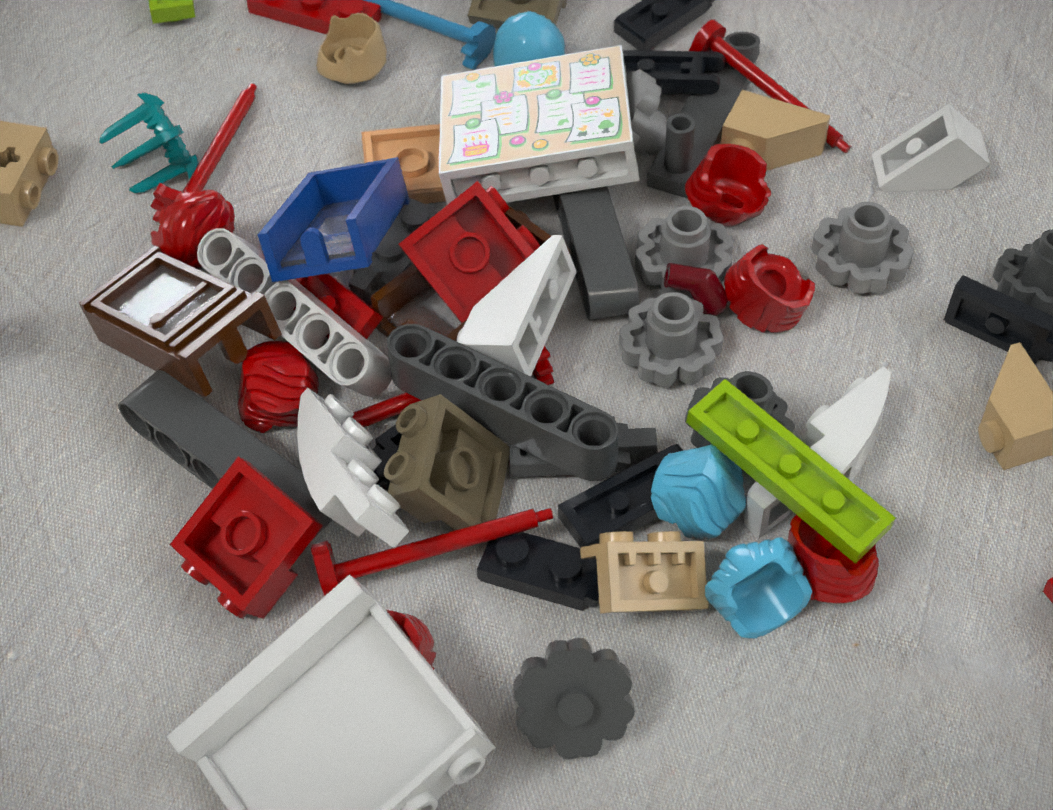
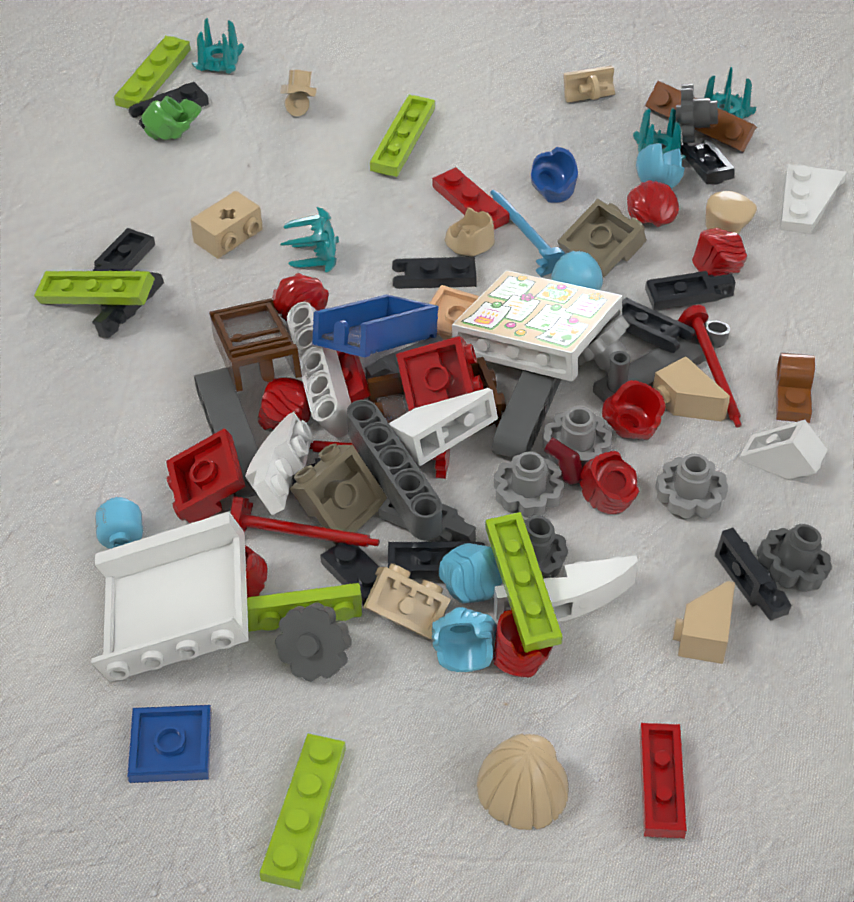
camera: 30 degrees right, 5 degrees down
(160, 672) = (118, 522): none -> medium azure head
(166, 196) = (352, 259): red piece -> none
(339, 119) = (434, 272): none -> black hinge
(498, 665) = (268, 610): none -> lime plate
(870, 68) = (793, 386): none -> dark orange plate
(967, 740) = (523, 782): none -> tan hair

